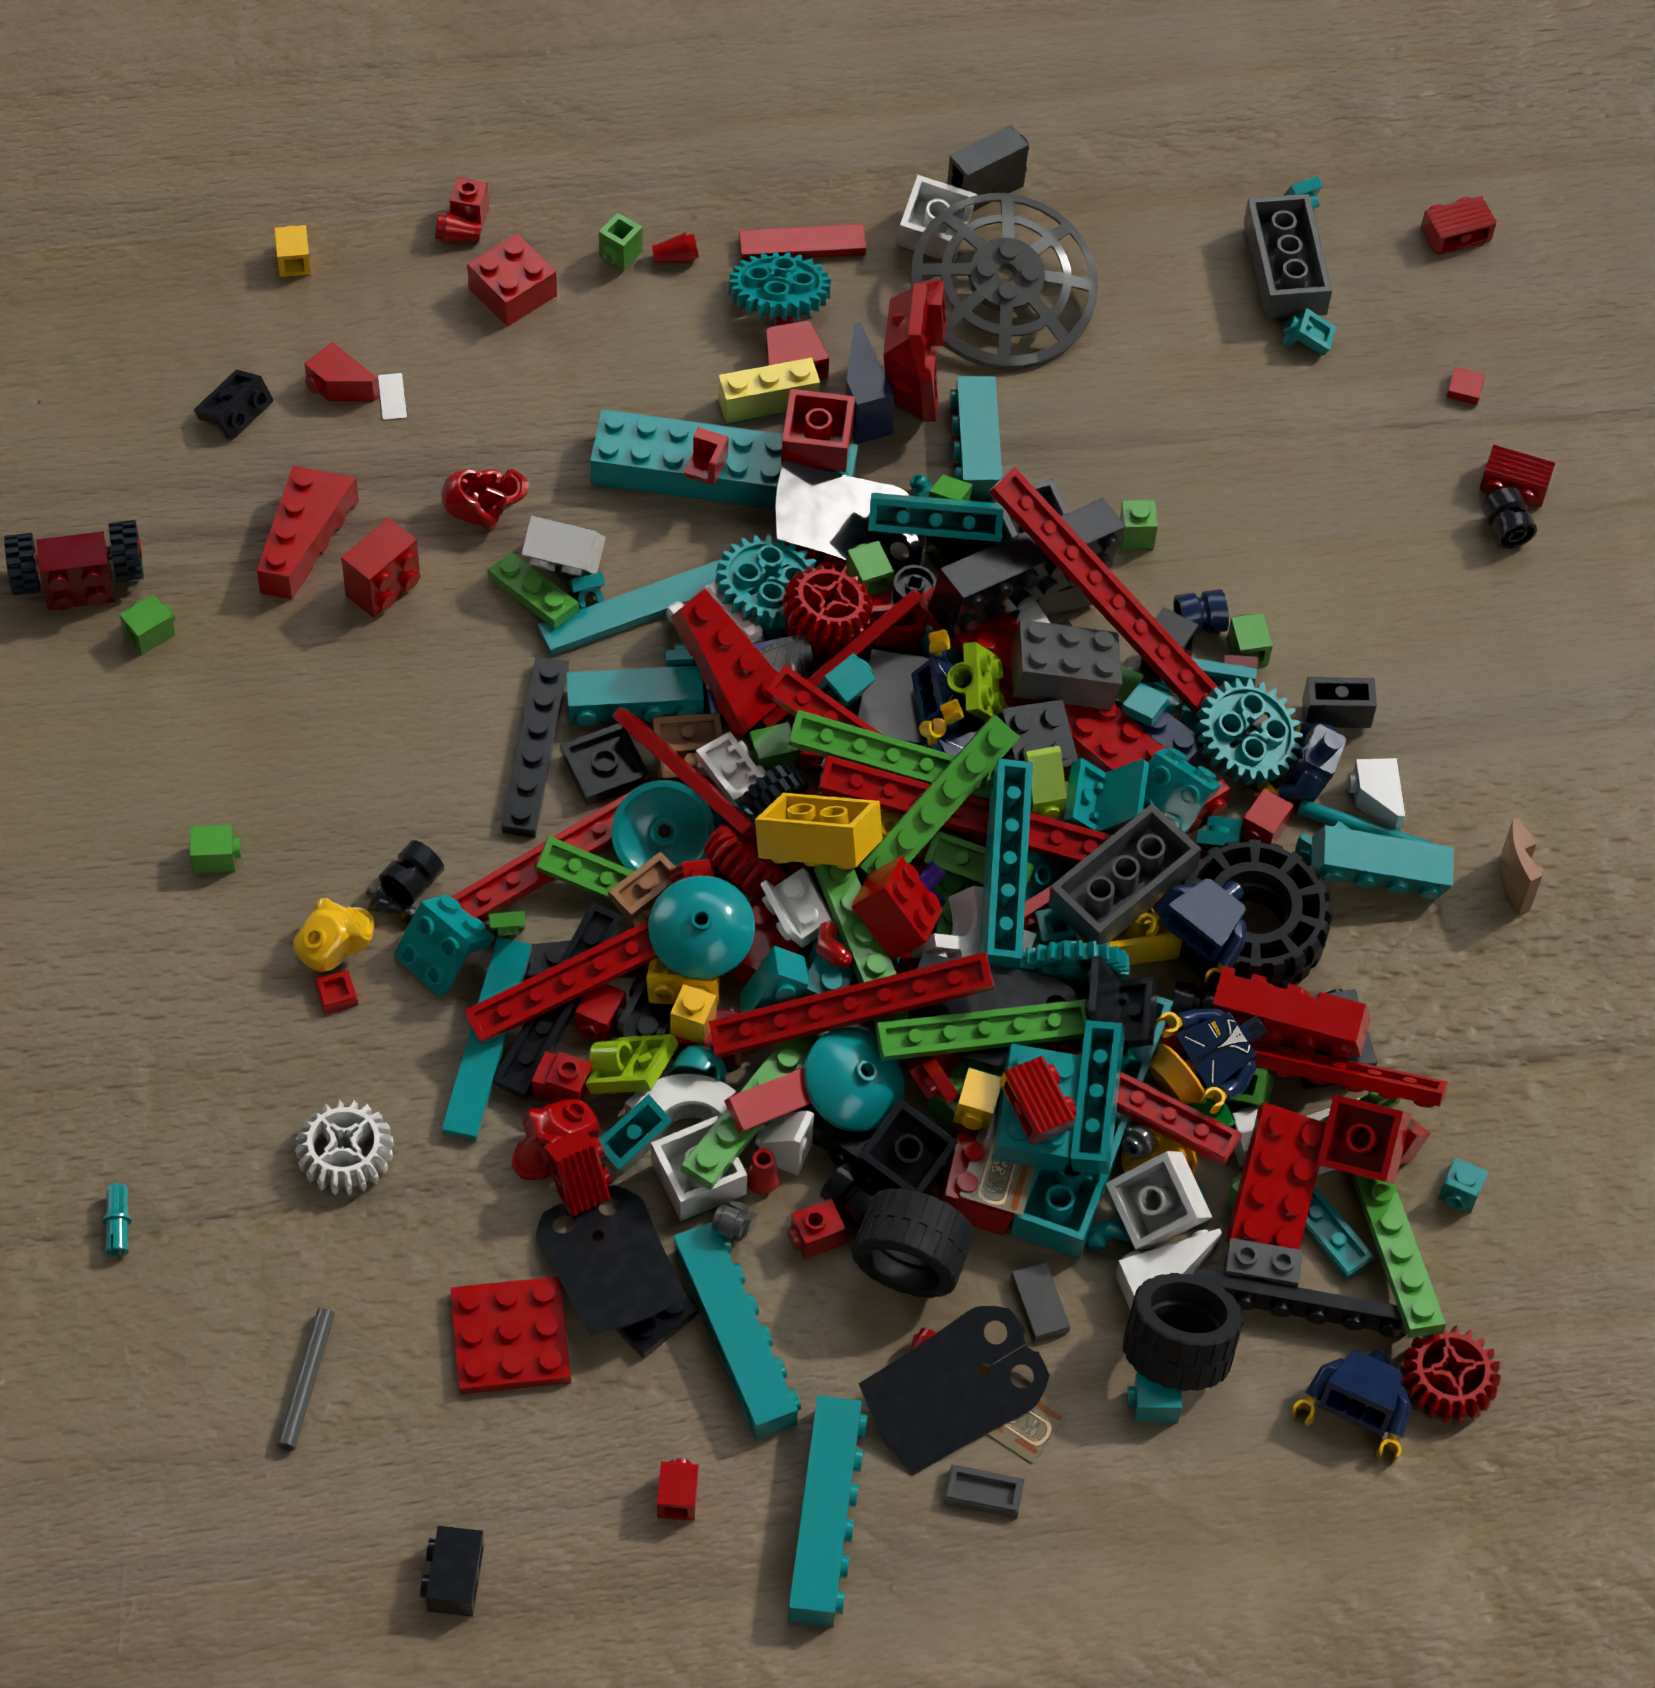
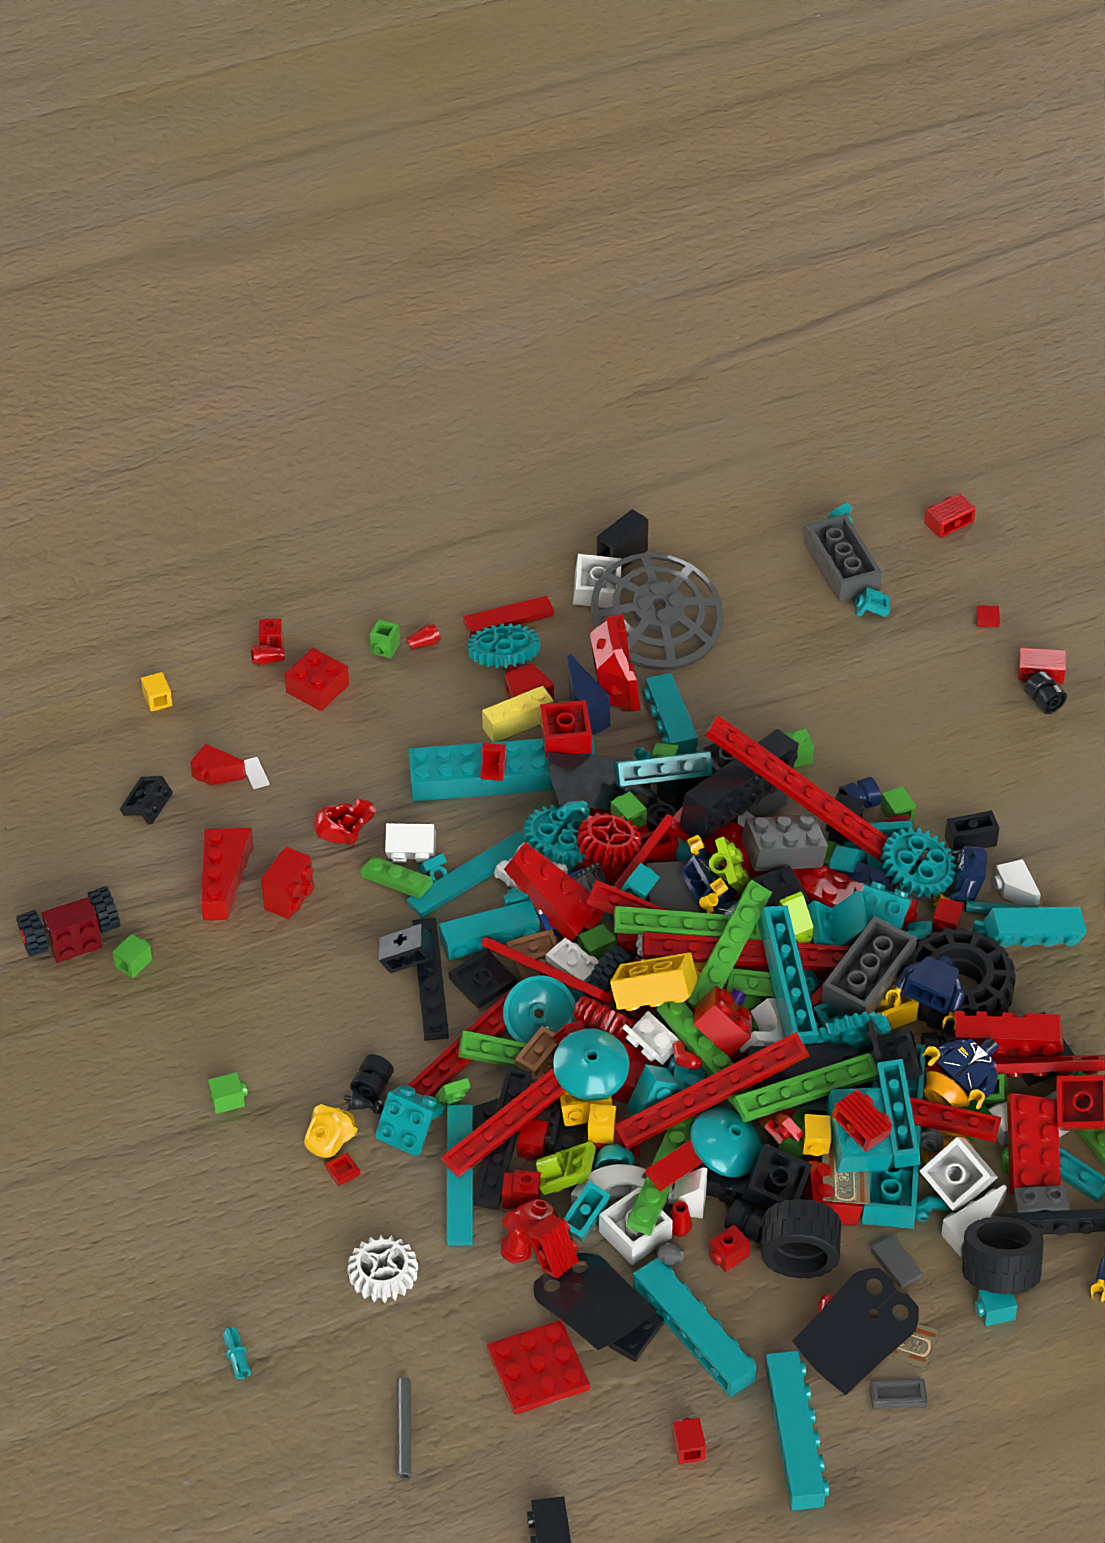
camera: 10 degrees left, 10 degrees down
(512, 697) = (406, 948): none -> black brick
(791, 546) = (570, 807): none -> teal arm

